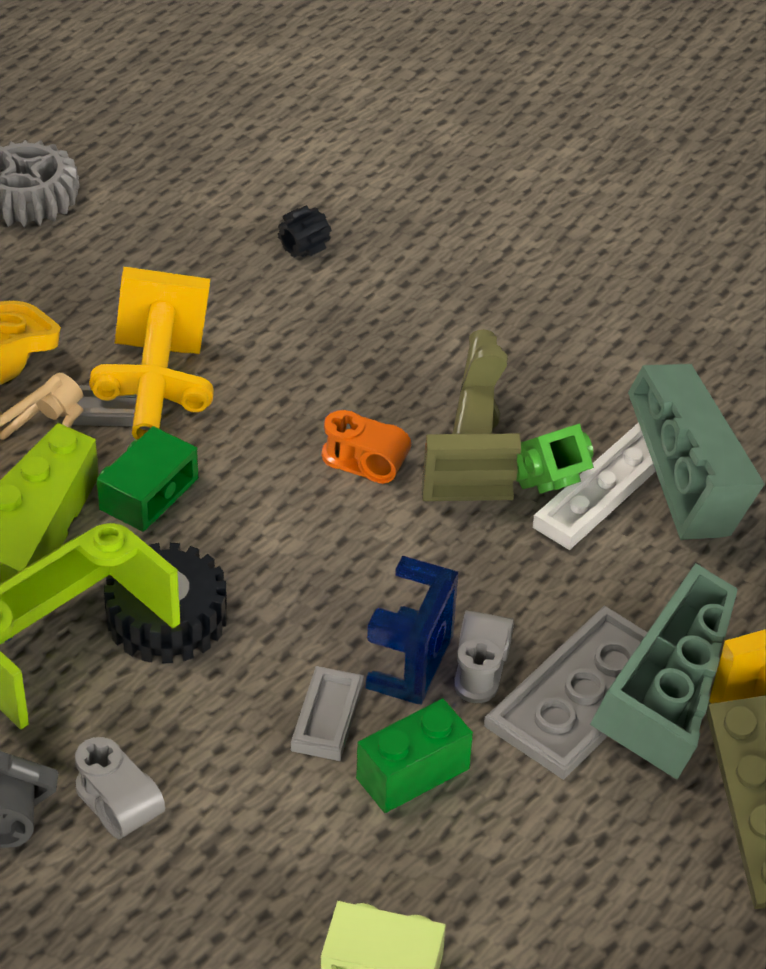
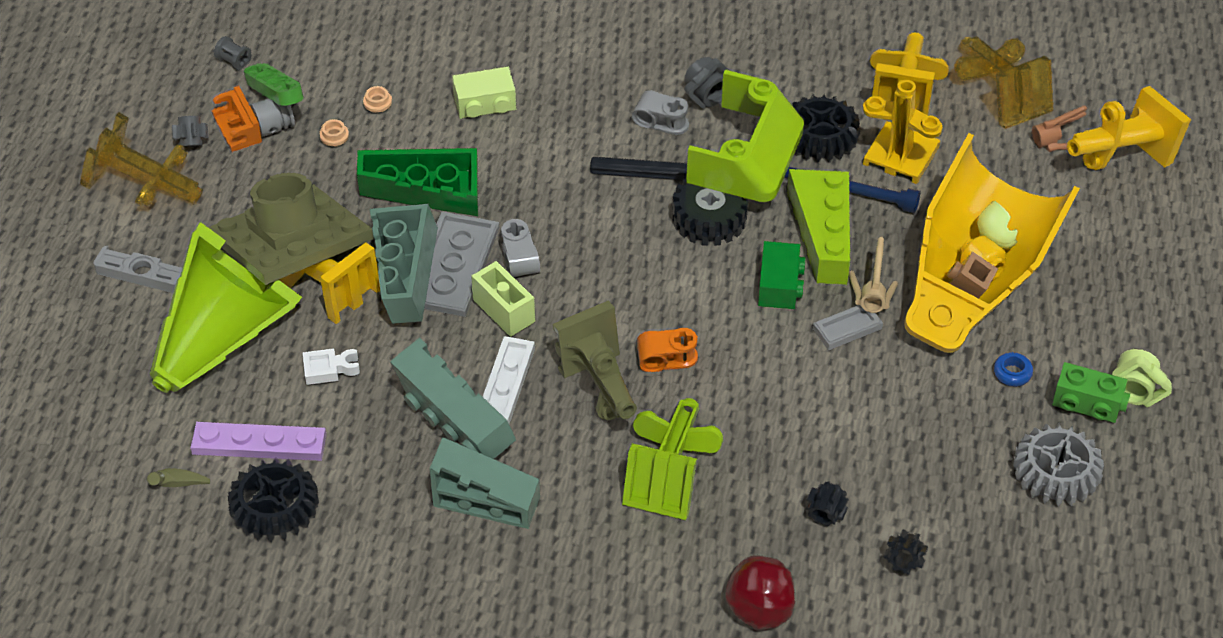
camera: 155 degrees right, 5 degrees up
(163, 316) = (849, 362): yellow piece -> none
(203, 716) = (638, 168): none -> black axle
(260, 166) = (904, 561): none -> black gear
(327, 713) = (585, 197): light grey tile -> none
(413, 755) = (522, 178): green brick -> none
(419, 634) = (557, 227): clear blue panel -> none
(443, 170) = (761, 592): none -> dark red piece
(471, 299) = (663, 477): none -> lime piece
(549, 574) = (503, 298): none -> yellowish green brick
(554, 459) = (541, 364): bright green brick -> none
(577, 814) = (421, 176): none -> green wedge
(725, 369) = (482, 486): none -> sand green wedge

